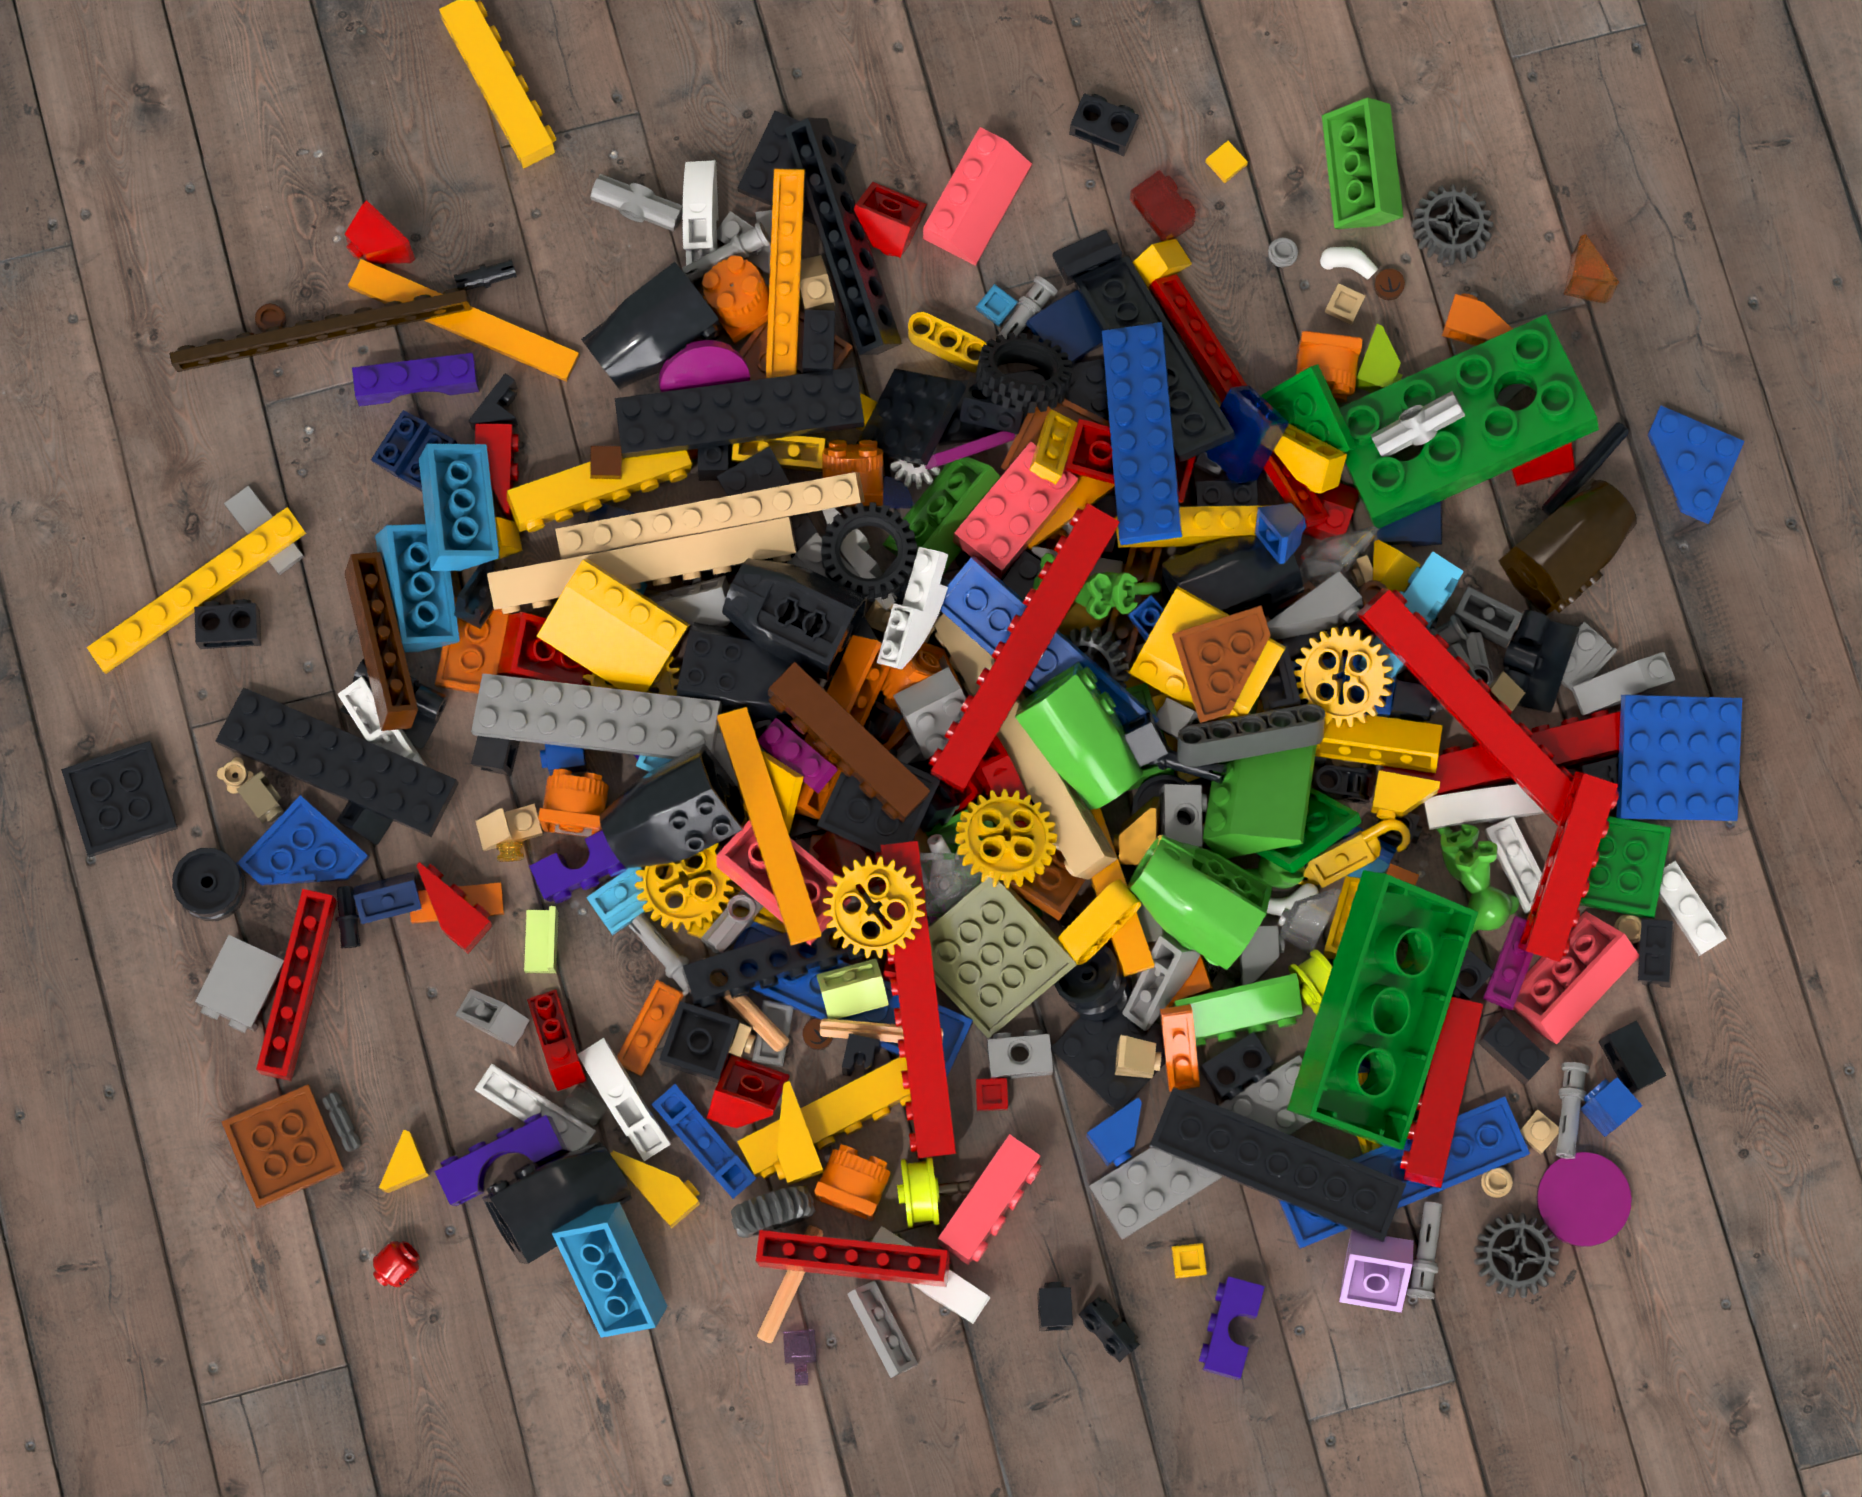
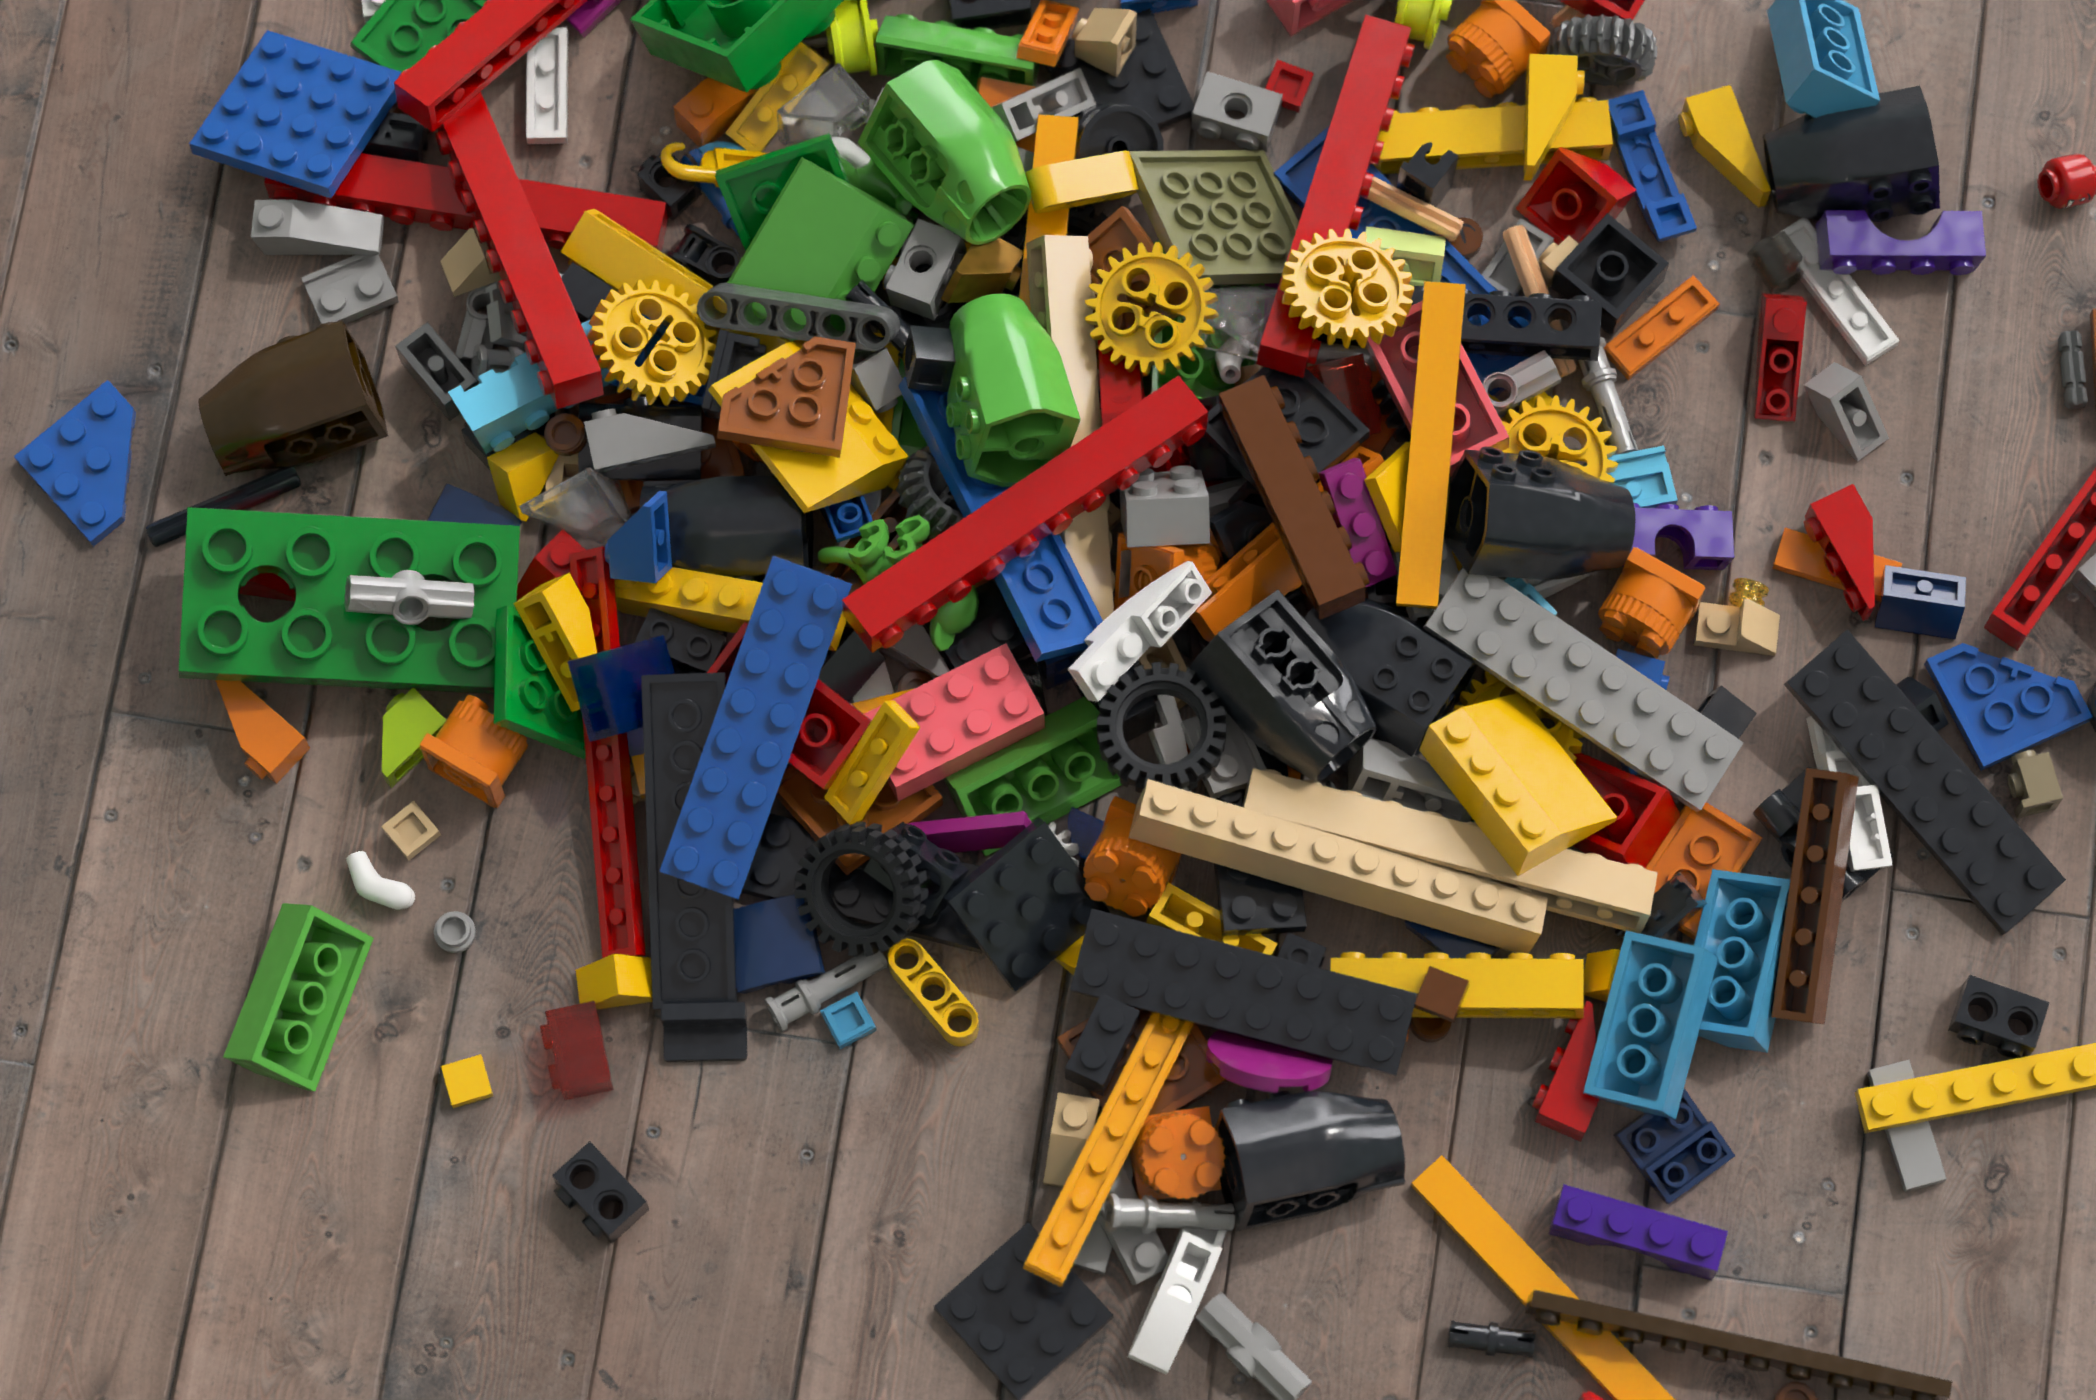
camera: 155 degrees left, 5 degrees down
(226, 773) = (2062, 821): tan plate -> none
(347, 918) = (1978, 598): black axle -> none
(405, 1165) = (2015, 284): yellow slope -> none
(492, 410) = (1556, 1148): black slope -> none
(541, 940) = (1751, 477): yellowish green panel -> none
(623, 1099) = (1729, 253): white slope -> none
(843, 236) = (1008, 1175): black brick -> none
(889, 218) = (933, 1187): red slope -> none
(976, 197) = (810, 1168): coral slope -> none
(1389, 284) = (342, 835): reddish brown tile -> none
(1400, 794) = (649, 197): yellow slope -> none
(1463, 223) = (218, 888): dark grey gear -> none
(1472, 869) = (608, 49): bright green animal -> none
(1479, 806) = (567, 163): white slope -> none
(1539, 659) = (399, 299): black panel -> none
(1589, 274) = (95, 729): clear orange slope -> none

